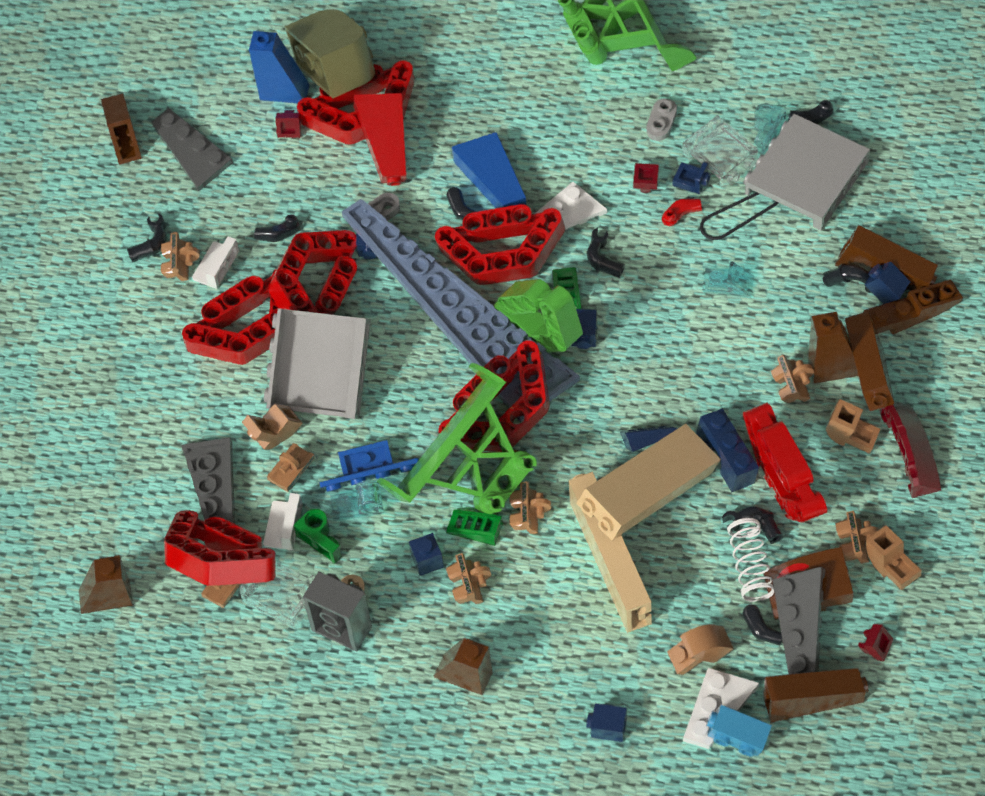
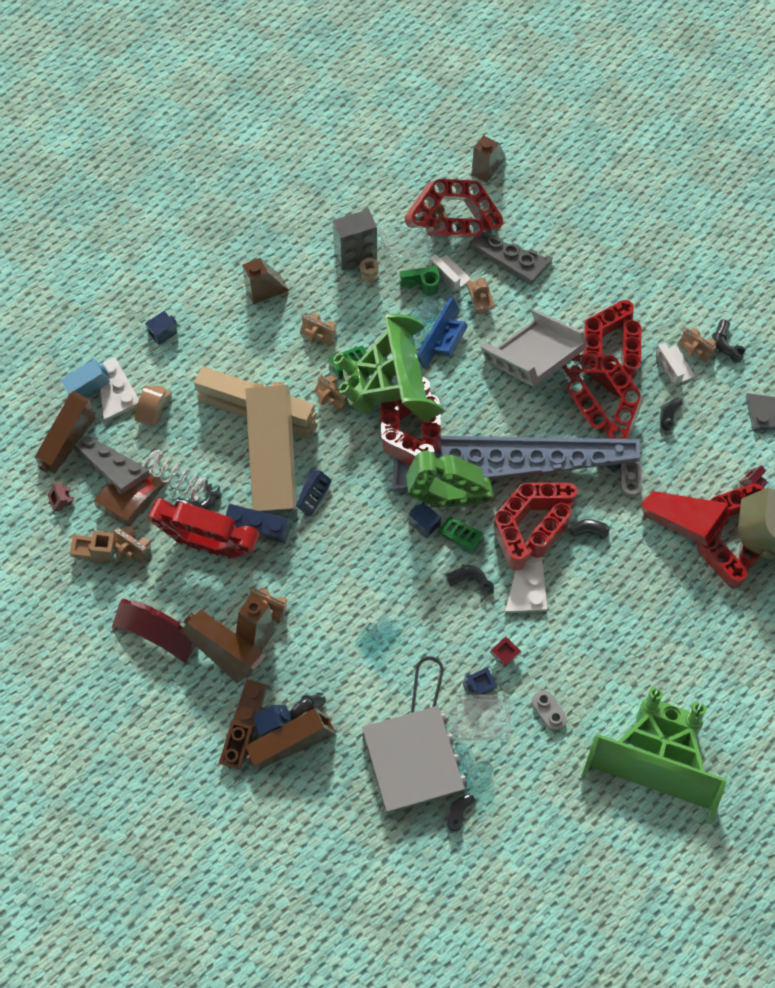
camera: 125 degrees right, 5 degrees up
(274, 427) = (518, 303): medium nougat brick -> none
(426, 554) = (354, 319): dark blue brick -> none
(489, 170) = (598, 564): blue slope -> none
(679, 209) = (463, 655): red arm -> none
(758, 627) = (135, 447): black arm -> none
(848, 428) = (201, 598): medium nougat brick -> none

